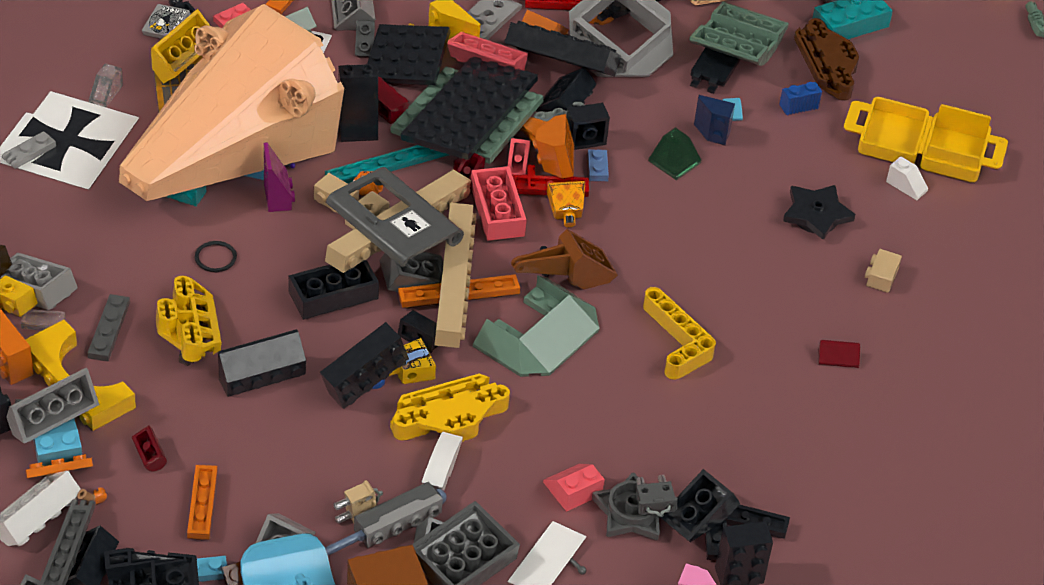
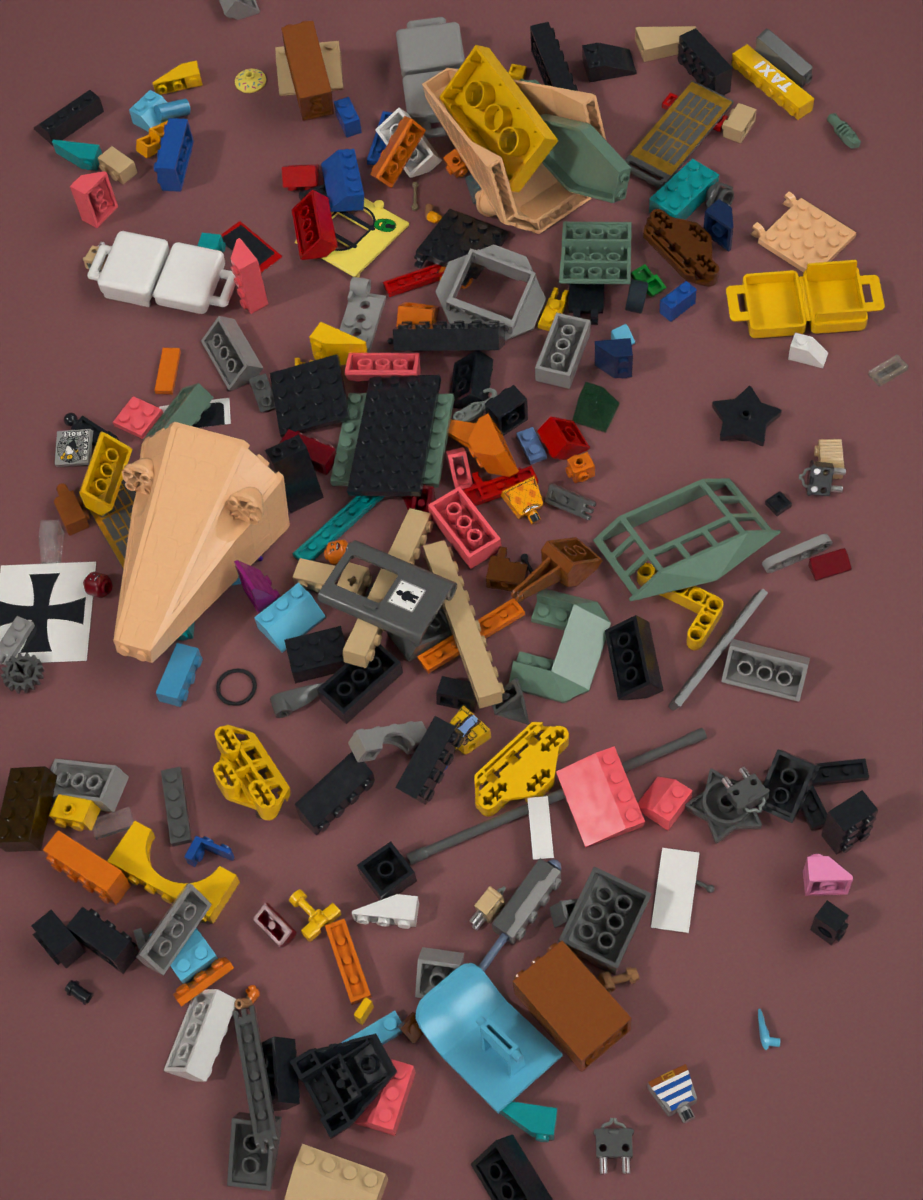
camera: 10 degrees left, 15 degrees up
(24, 175) = (15, 679): none -> dark grey gear
(115, 363) = (196, 850): none -> blue bracket
(129, 132) = (97, 584): none -> dark red head
(137, 69) = (70, 510): none -> dark orange hinge
(167, 226) = (179, 675): none -> dark azure brick
(191, 456) = (317, 917): none -> yellow bar
(196, 544) = (363, 1010): none -> yellow tile
(259, 280) = (290, 700): none -> dark grey piece
(266, 476) = (394, 910): none -> white slope
(276, 443) = (386, 872): none -> black brick
(294, 217) = (289, 616): none -> medium azure slope
(299, 251) = (316, 654): none -> black brick
(311, 327) = (368, 743): none -> light grey arch
(468, 355) = (512, 703): none -> dark grey slope
(513, 456) = (600, 797): none -> coral slope
(514, 246) = (503, 573): none -> reddish brown hinge
(605, 361) = (633, 659): none -> black slope
(610, 218) = (569, 501): none -> dark grey hinge
(626, 444) = (424, 852): none -> dark grey piece
(630, 167) = (562, 438): none -> red slope
(634, 195) = (580, 467): none -> orange brick
(667, 98) = (563, 350): none -> light grey brick
(676, 68) = (552, 307): none -> yellow hinge
(691, 382) = (717, 650): none -> tile
(706, 303) = (695, 569): none -> sand green window
(729, 414) = (765, 670): none -> light grey slope
(761, 80) = (636, 296): none -> black wheel
(780, 74) = (644, 274): none -> green slope
(782, 335) = (797, 553): none -> light grey beam
(814, 290) = (778, 503): none -> black tile
(863, 279) = (819, 478): none -> black piece
(872, 49) = (719, 223): none -> dark blue slope
(885, 30) = (717, 192): none -> dark grey piece
(954, 85) = (804, 234): none -> light nougat plate
(980, 222) = (888, 370): none -> clear tile

